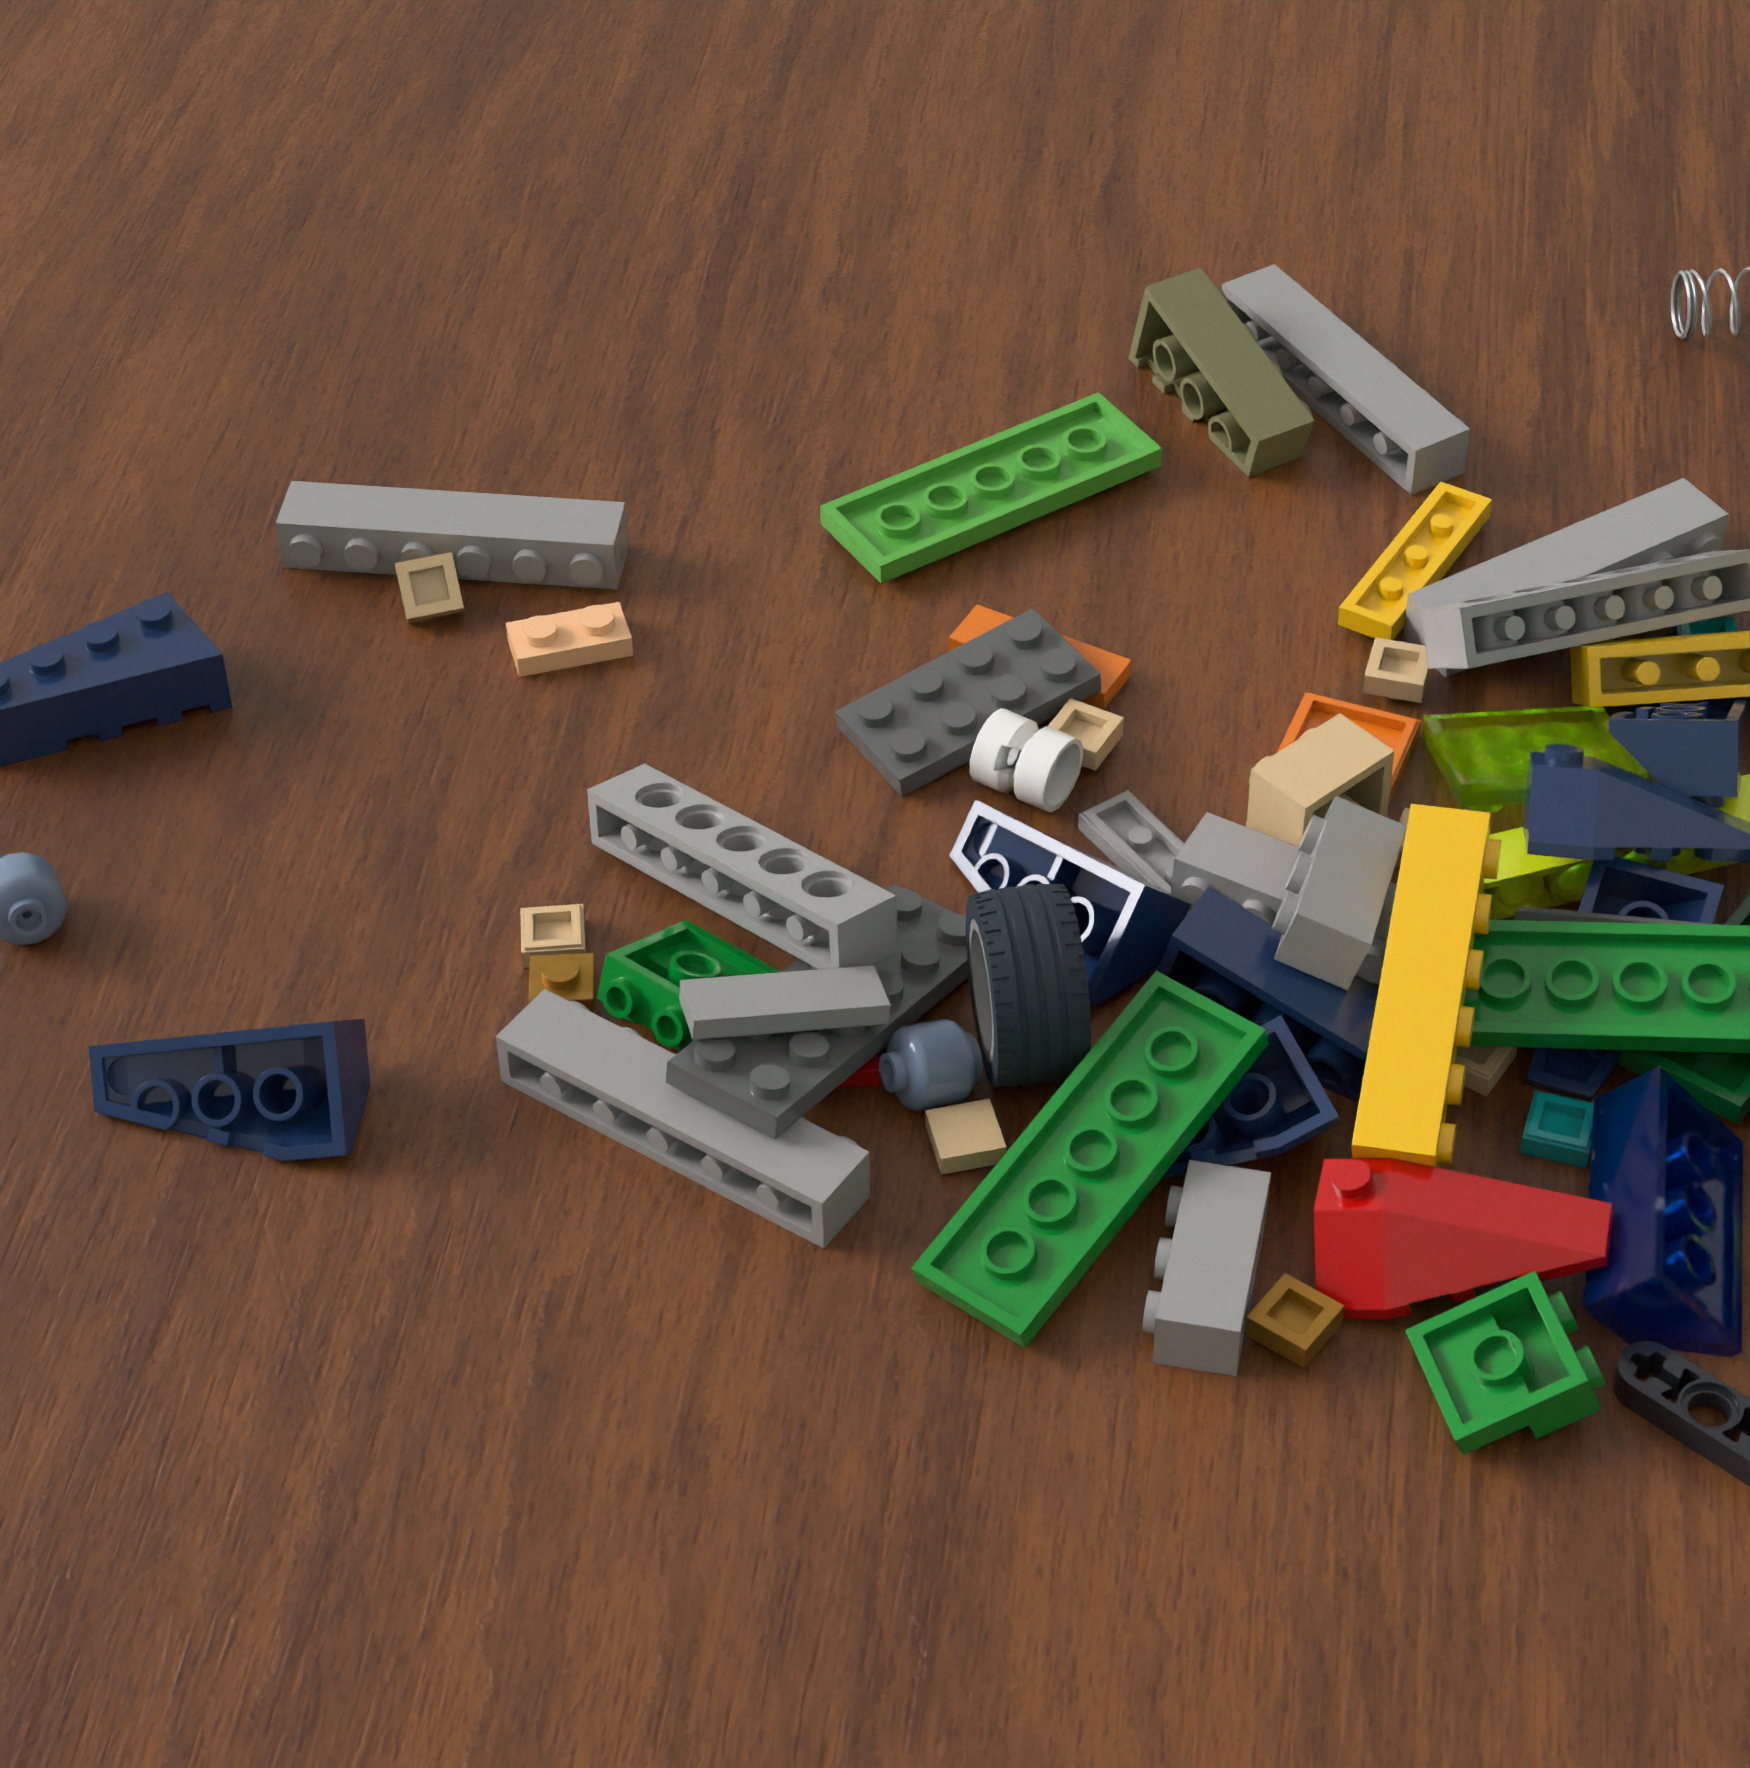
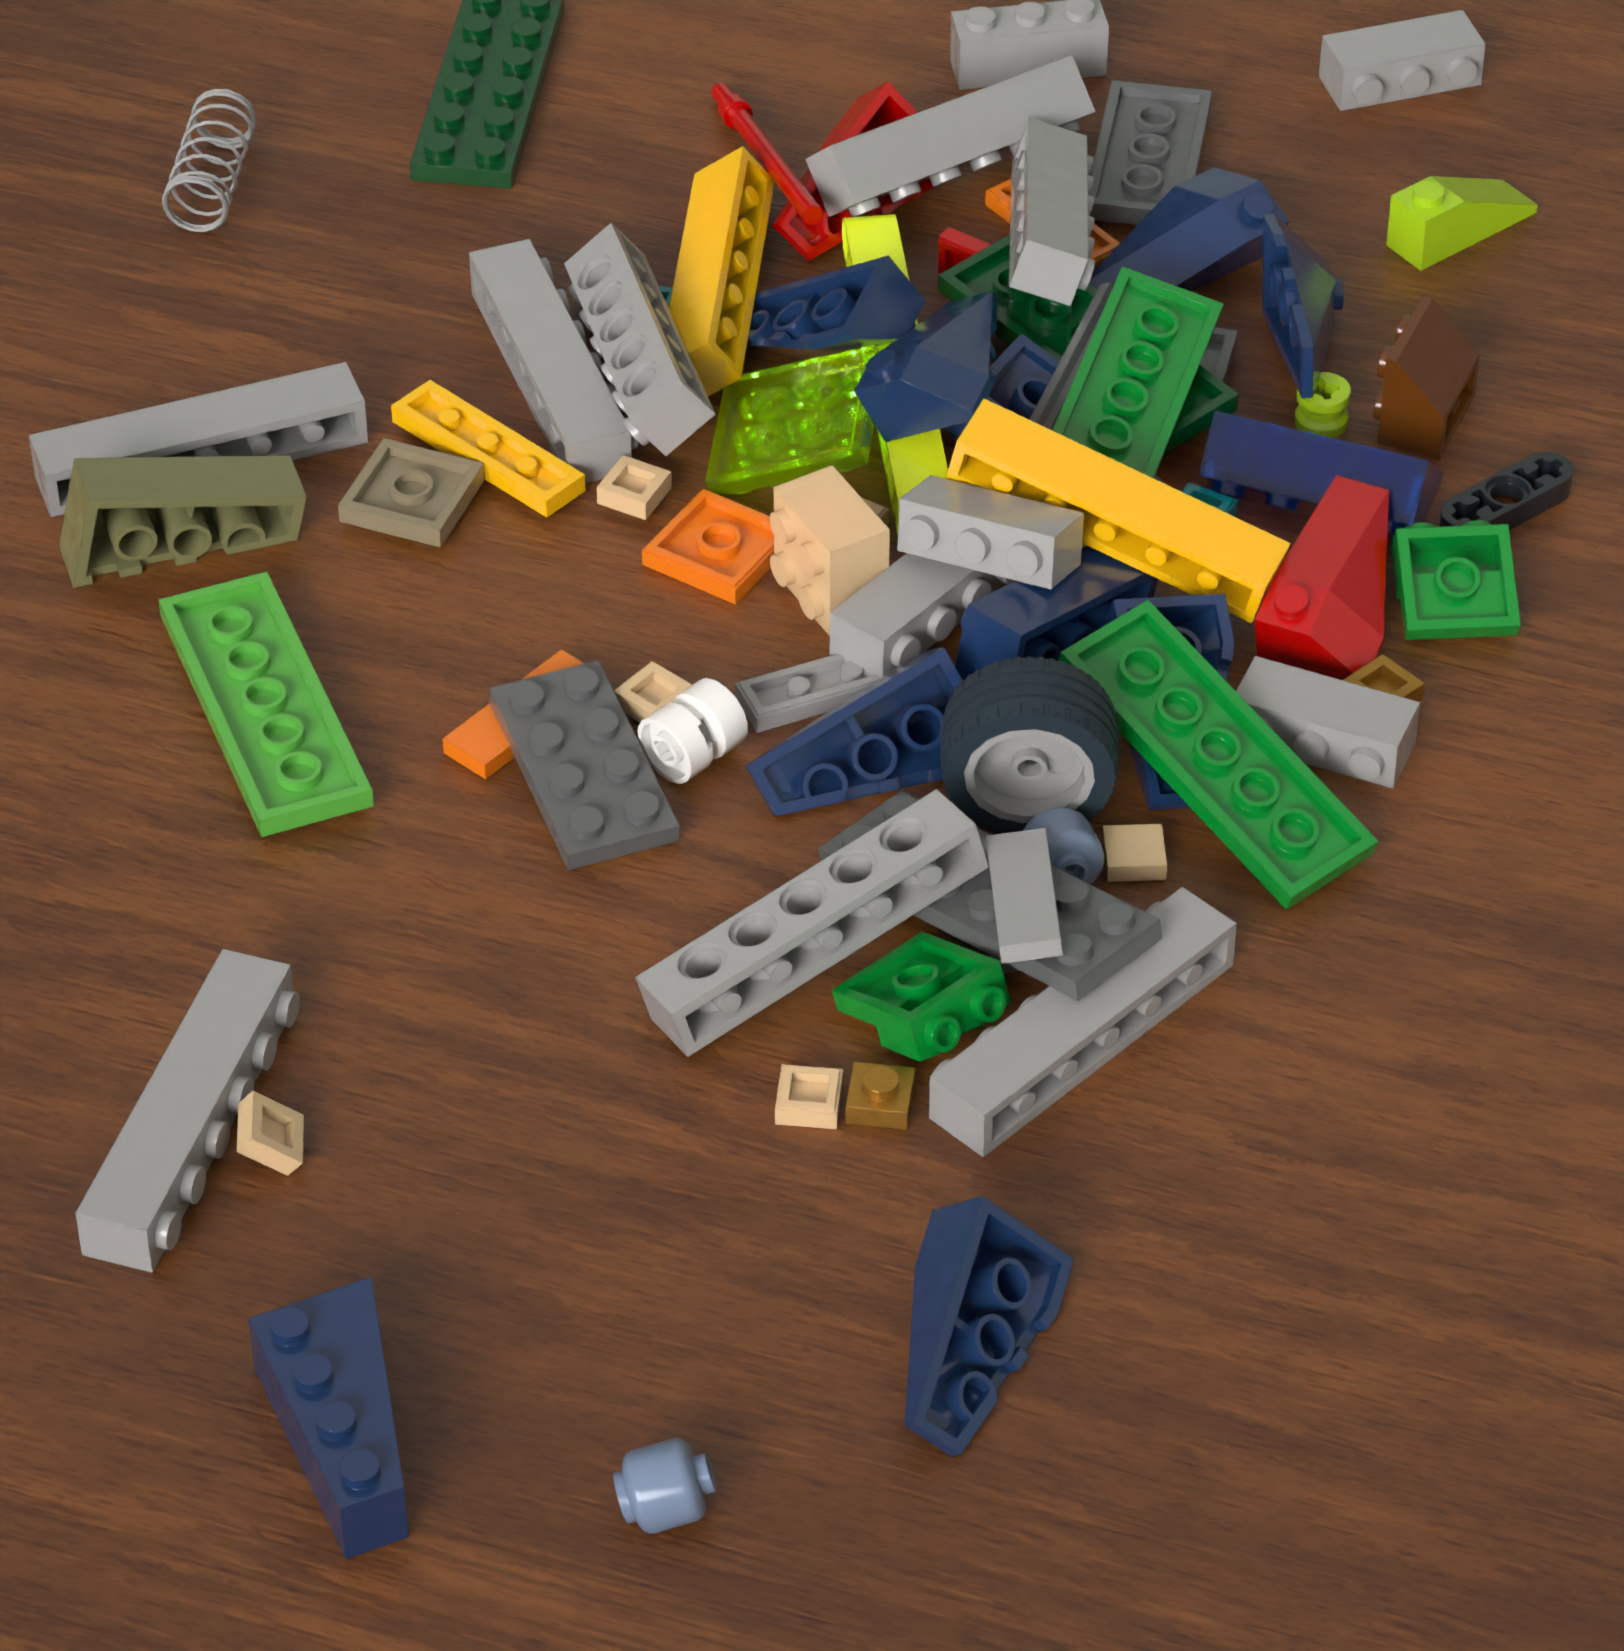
camera: 80 degrees left, 0 degrees up
(569, 639) = (374, 1044): light nougat plate -> none
(1325, 523) = (411, 492): none -> dark tan plate

